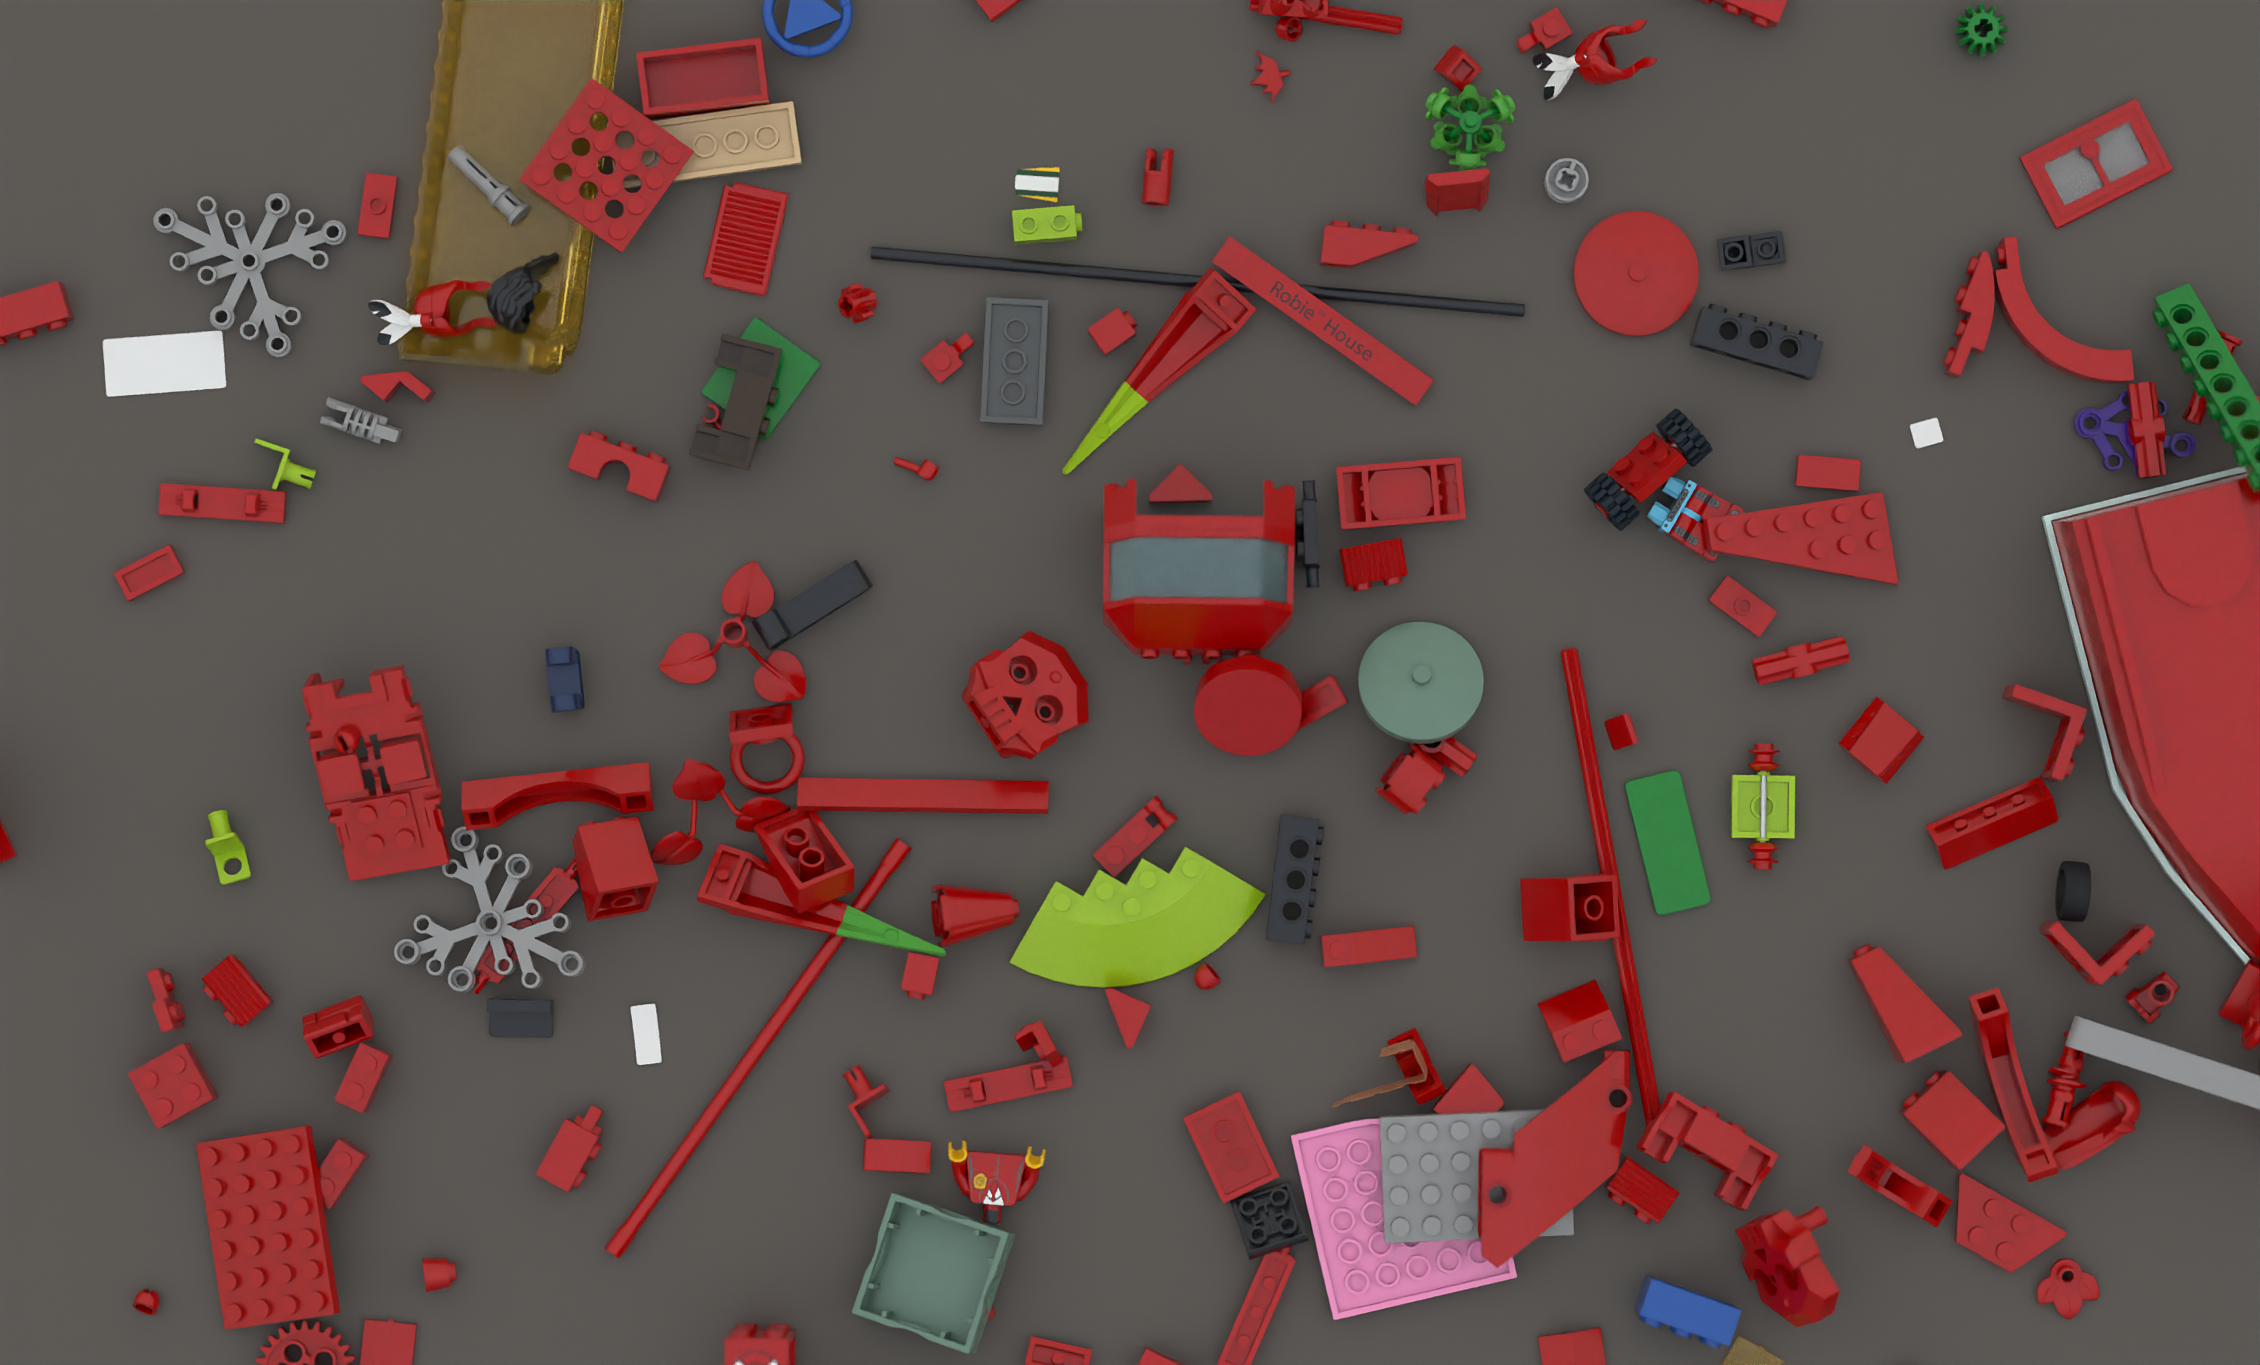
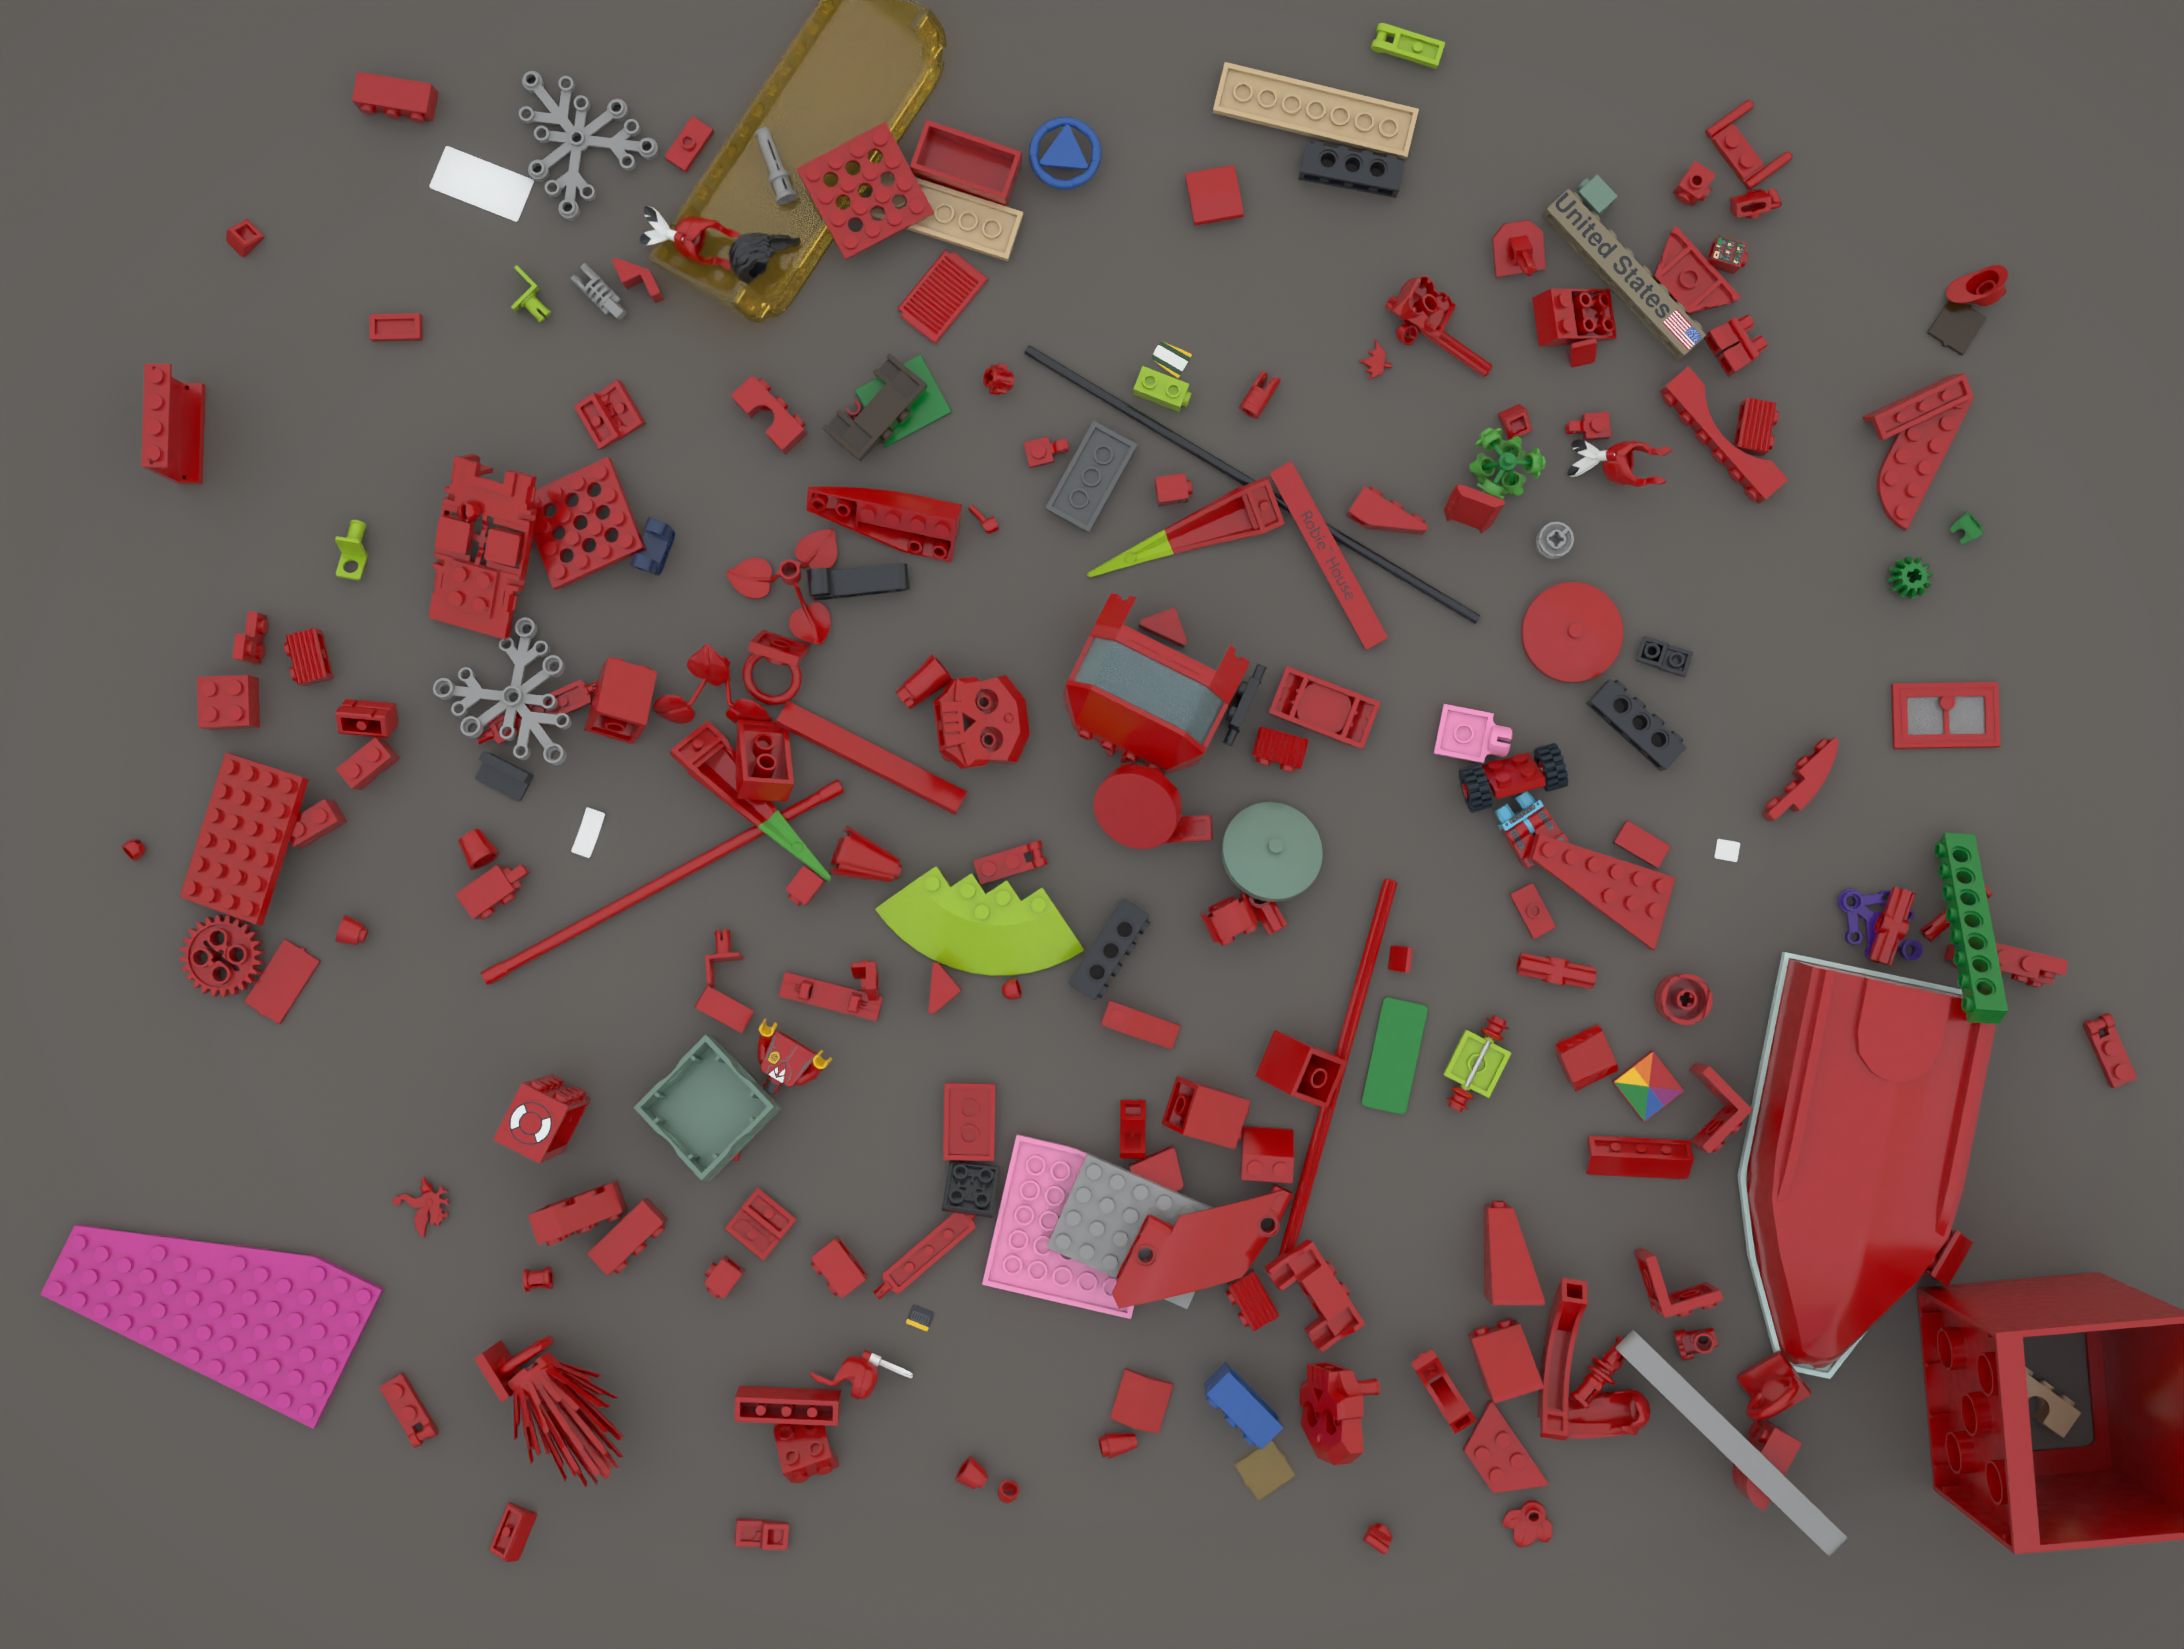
camera: 30 degrees right, 0 degrees up
(223, 503) = (473, 303): red hinge -> none
(439, 554) = (609, 414): none -> red slope
(495, 800) = (563, 611): red arch -> none
(512, 665) = (619, 519): none -> red piece
(533, 1112) = (477, 849): none -> red piece
(814, 516) = (891, 517): none -> red wedge
(941, 683) = (924, 682): none -> red plant
(1389, 1050) = (1130, 1110): nougat piece -> none
(1489, 1008) = (1206, 1113): none -> red slope
(1578, 444) = (1470, 735): none -> bright pink plate
(1964, 739) = (1647, 1086): none -> tile
(1970, 634) = (1690, 986): none -> red brick
(2043, 339) = (1846, 821): red arch -> none
(2073, 891) = (1675, 1237): black tyre -> none

